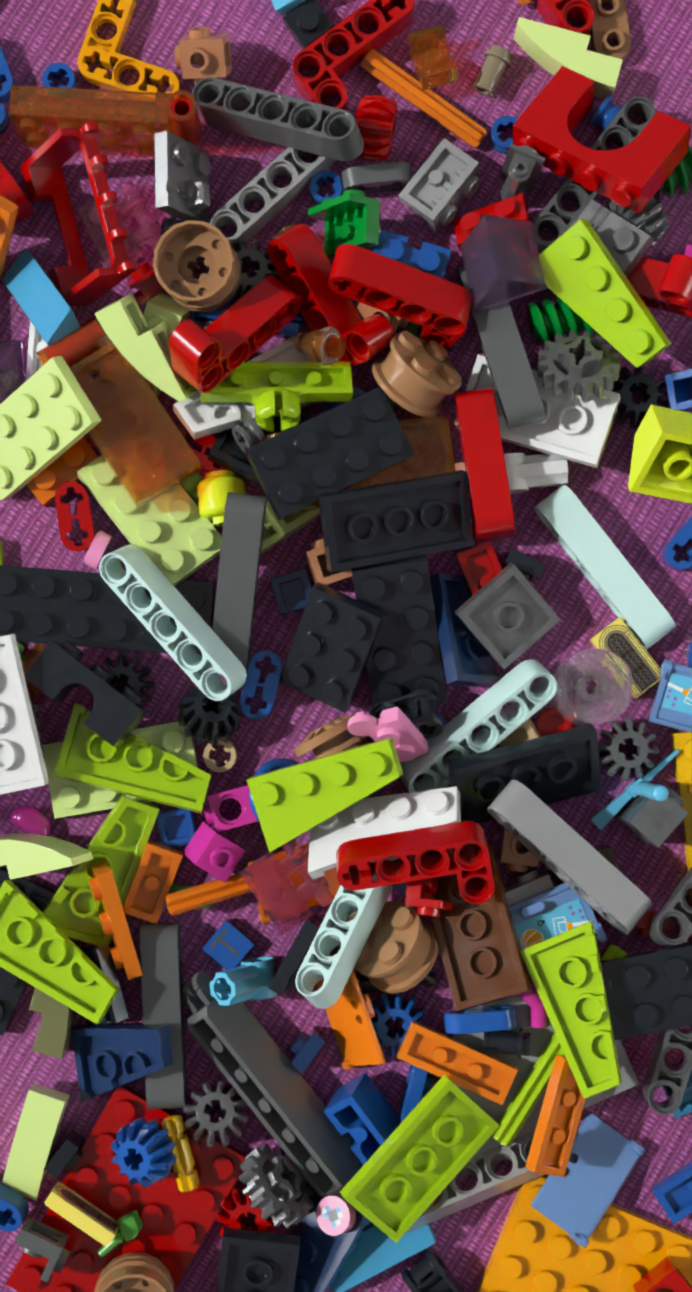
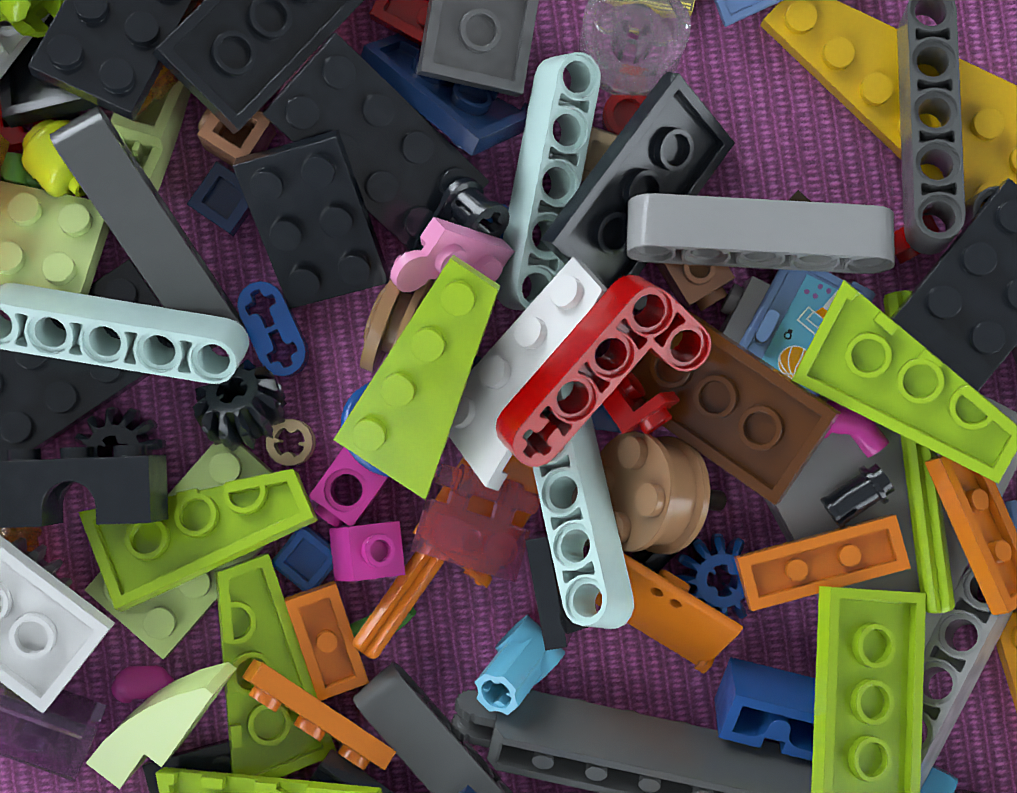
camera: 40 degrees left, 0 degrees up
(228, 945) = (467, 641): blue tile -> none
(248, 434) = (17, 62): dark grey bush -> none
(306, 1048) = (643, 683): dark blue plate -> none
(416, 1086) = (797, 627): blue plate -> none
(481, 1019) = (809, 493): blue beam -> none
(635, 739) = (726, 57): dark grey gear -> none
(636, 787) = (778, 95): medium azure piece -> none
(654, 819) = (814, 116): flat silver brick -> none

